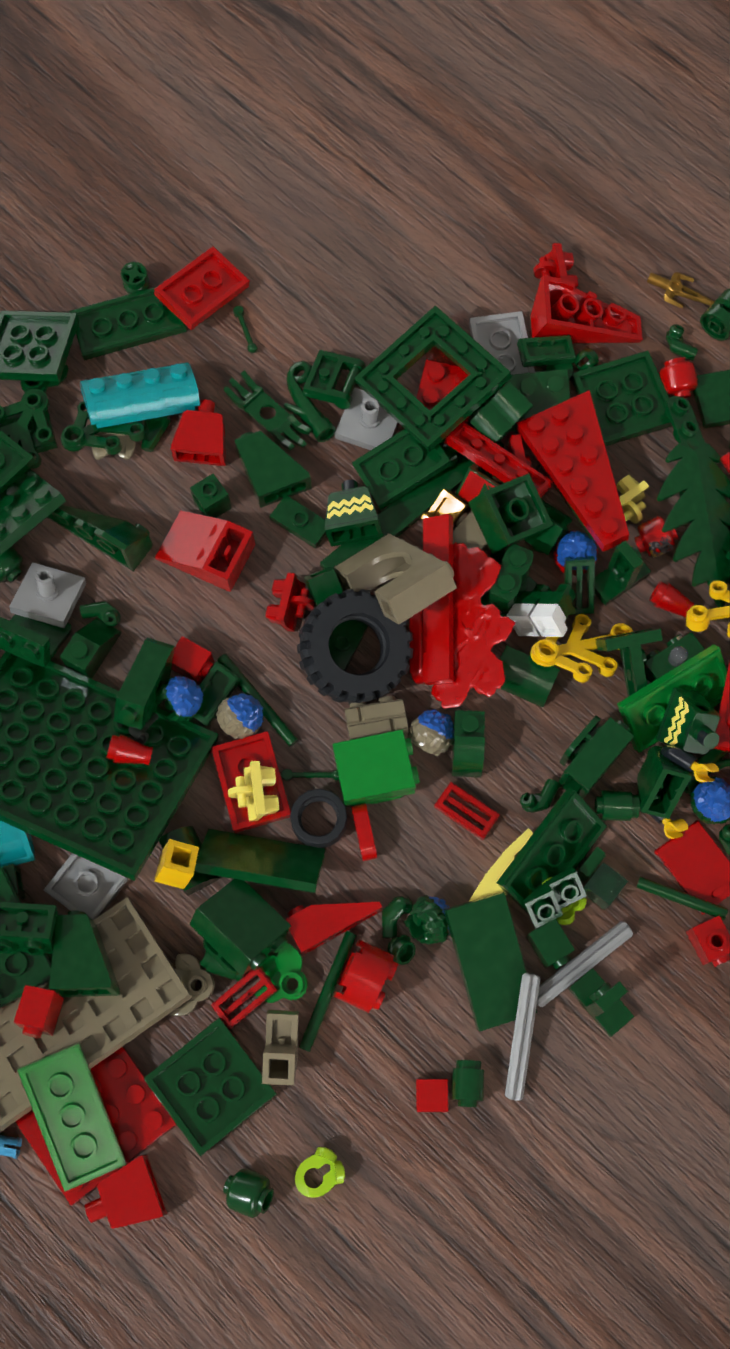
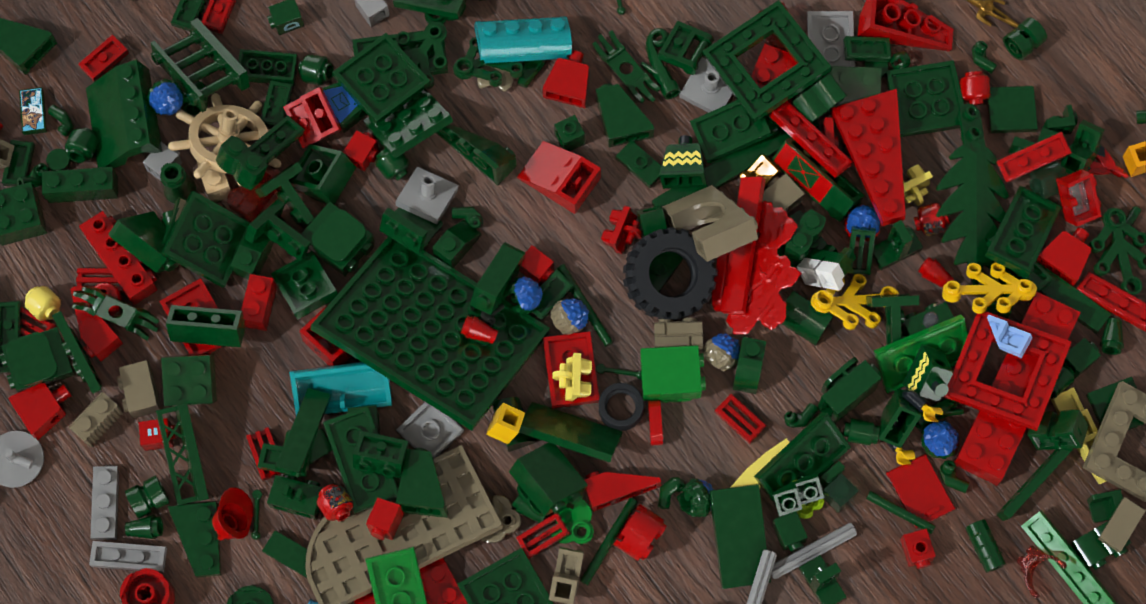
camera: 10 degrees right, 0 degrees up
(402, 949) = (672, 517): dark green plate -> none
(510, 513) = (812, 183): dark green slope -> none

